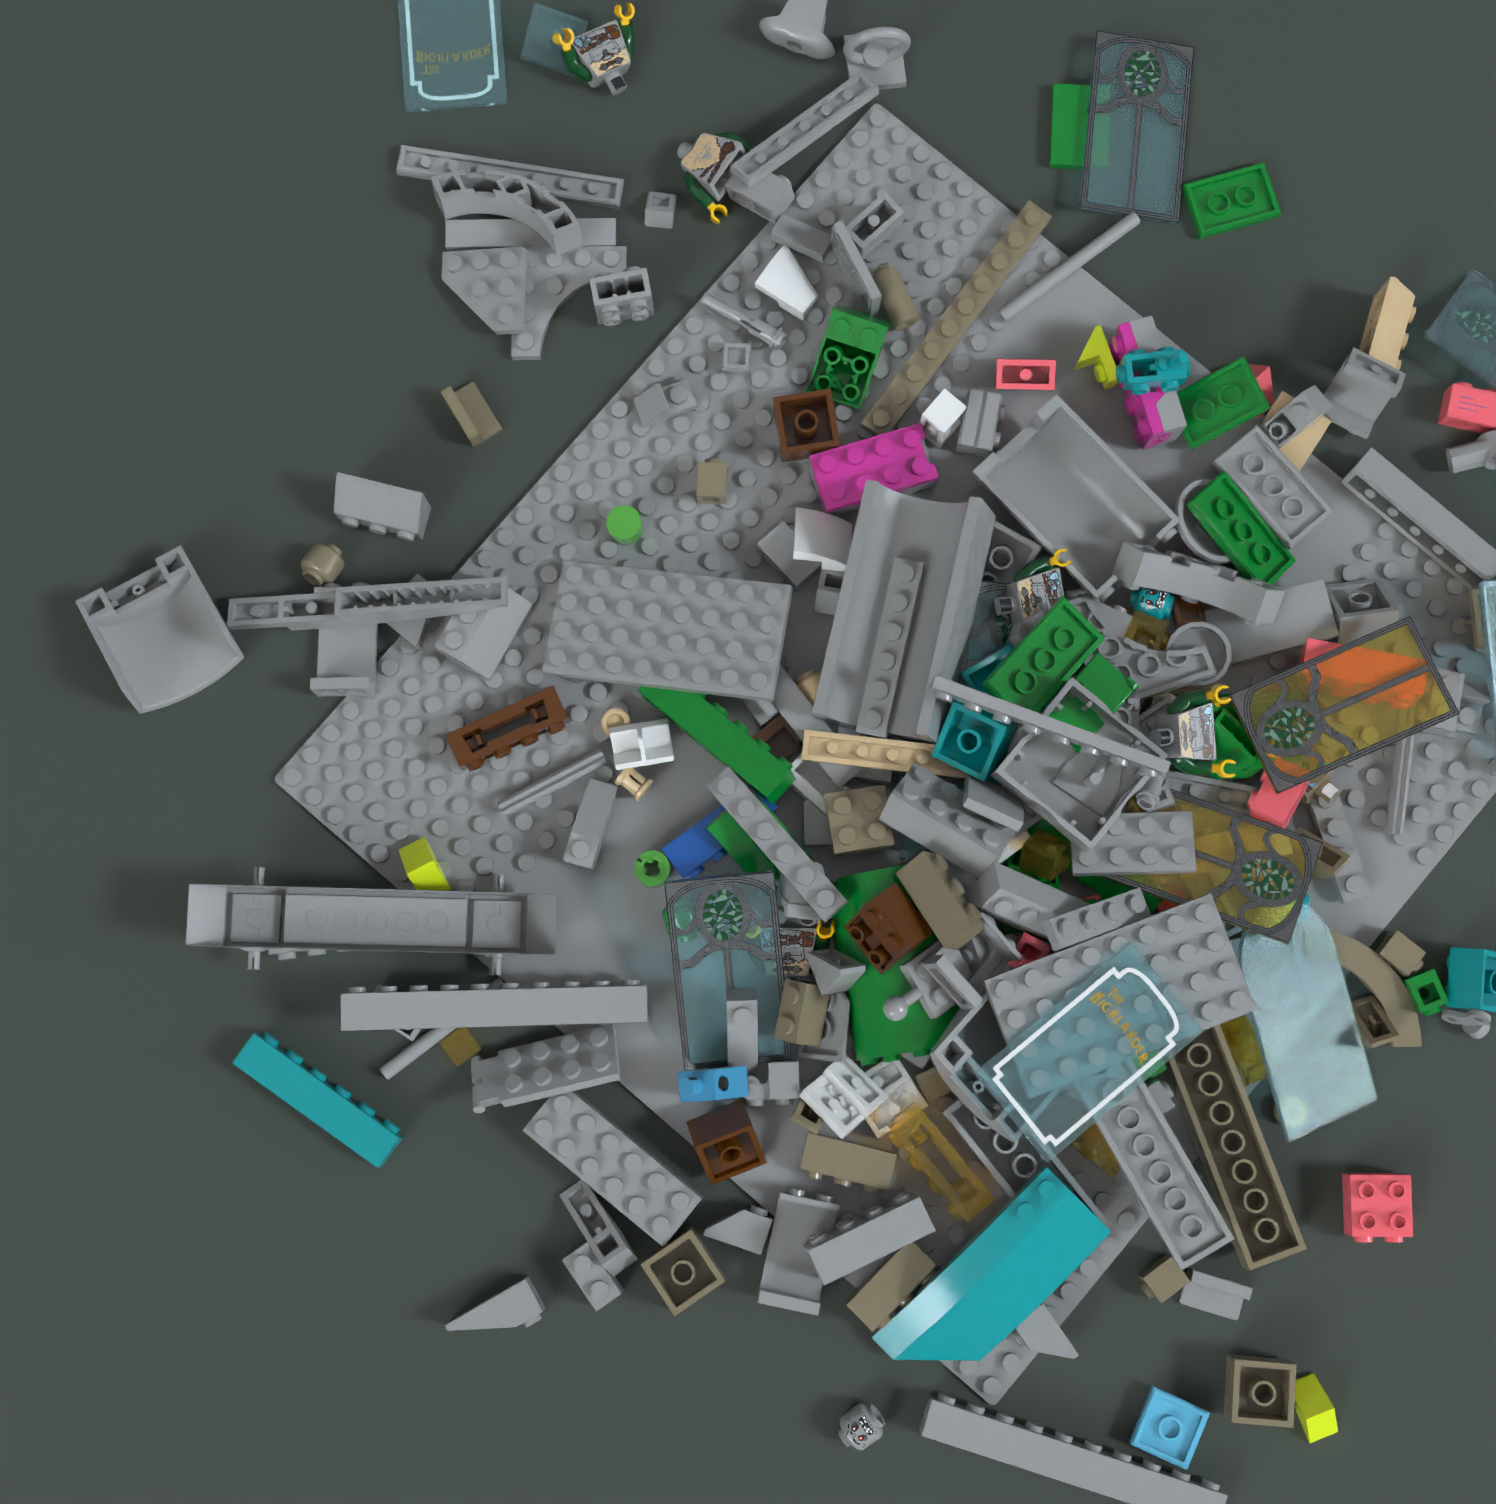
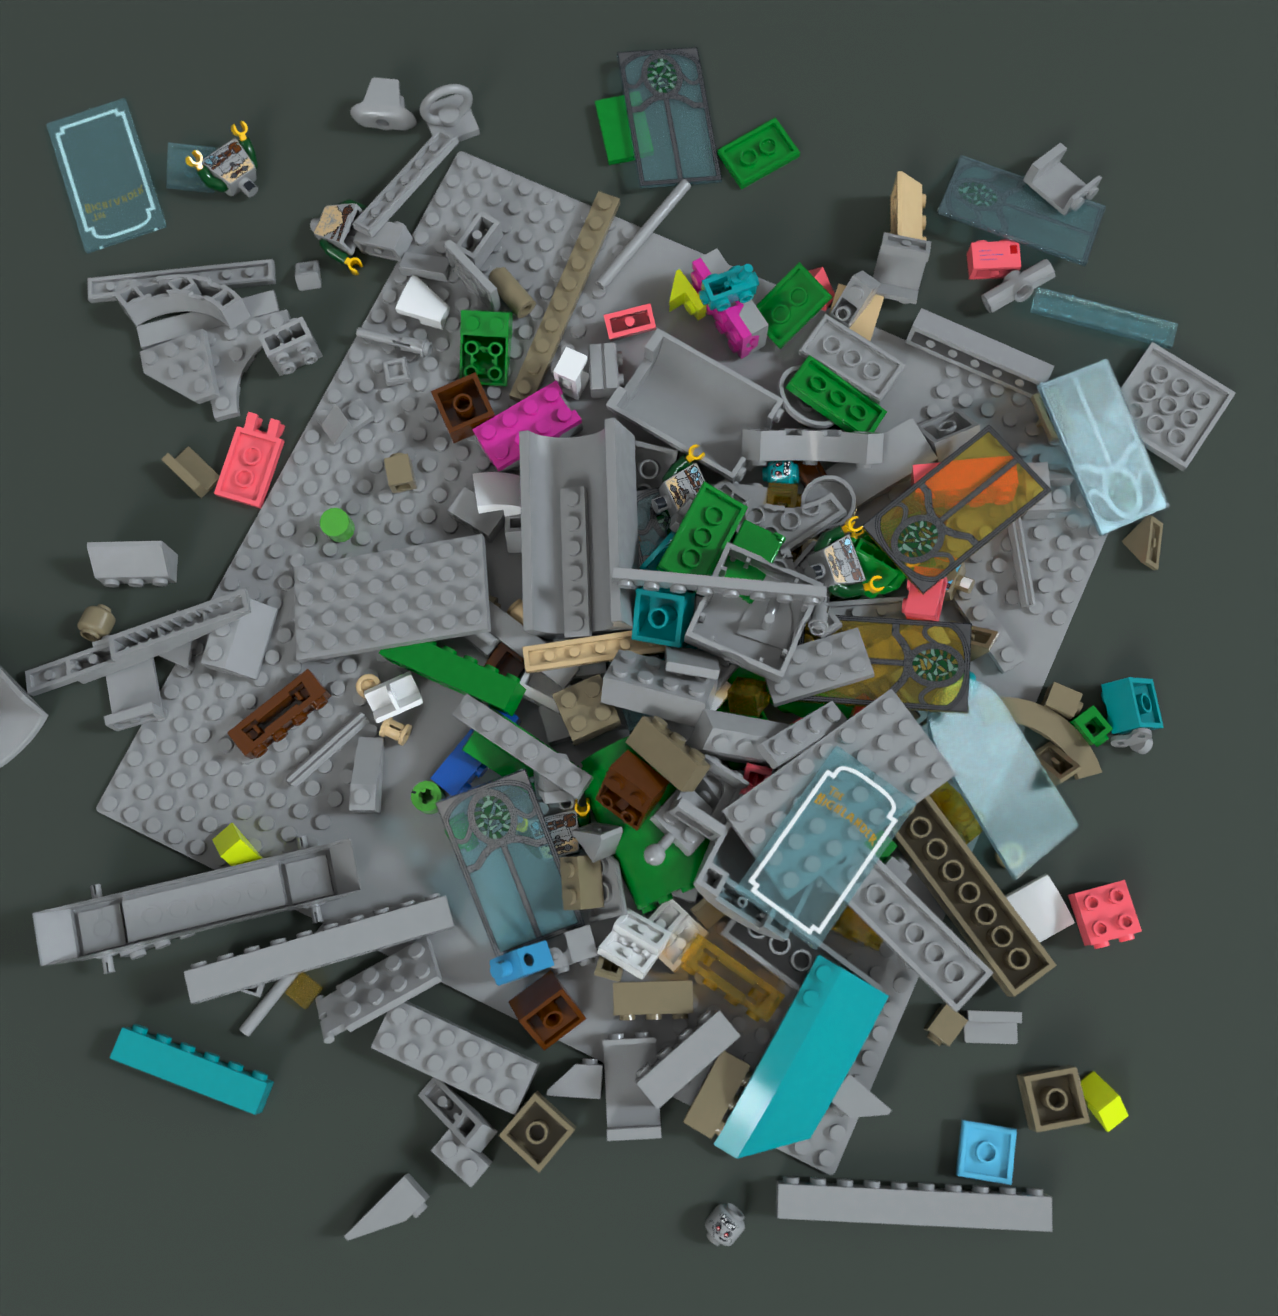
camera: 10 degrees left, 5 degrees down
(541, 421) = (251, 462): none -> coral tile
(742, 1028) = (534, 910): light grey slope -> none
(1307, 1178) = (1041, 907): none -> white slope

